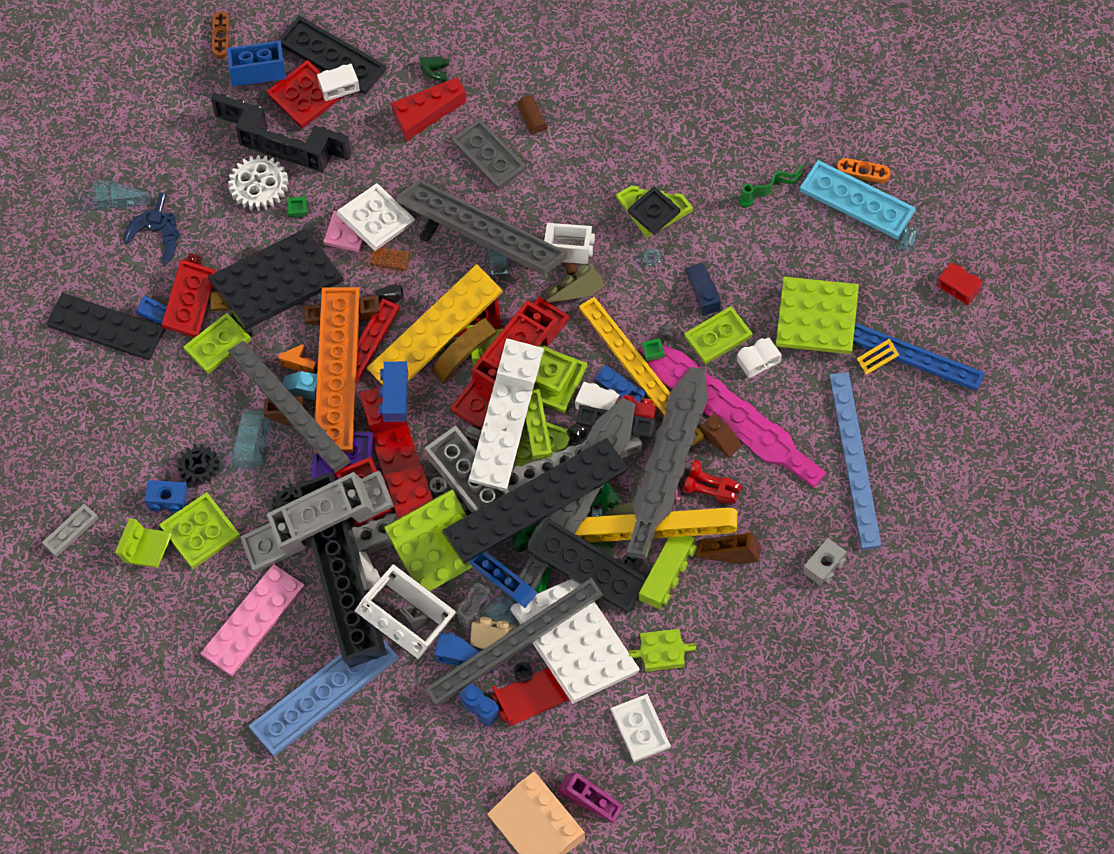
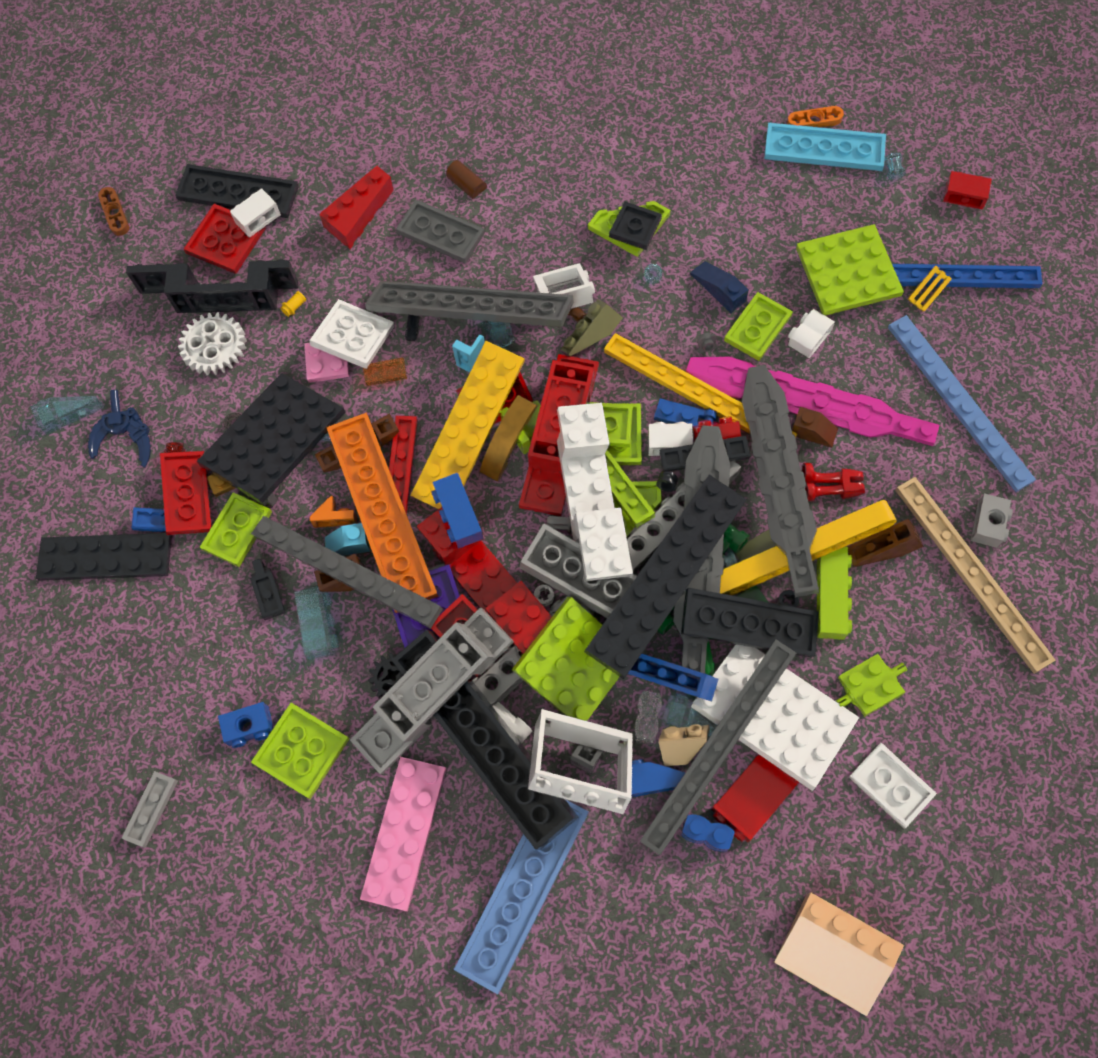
camera: 20 degrees left, 5 degrees up
(142, 545) = (241, 795): lime bracket -> none
(198, 466) = (263, 664): black gear -> none
(222, 401) = (266, 591): none -> black hinge
(256, 63) = (161, 224): blue brick -> none
(297, 207) = (264, 353): green plate -> none
(338, 172) = (293, 304): none -> yellow pin
(391, 293) = (402, 406): black cone -> none
(437, 62) = (345, 163): dark green plant -> none
(460, 269) = (465, 355): none -> medium azure panel
(523, 677) = (737, 766): black bush -> none
(589, 796) = (880, 893): magenta slope -> none
(653, 350) = (702, 364): green plate -> none
(749, 192) = (717, 183): green flag -> none
(789, 598) = (975, 576): none -> tan plate

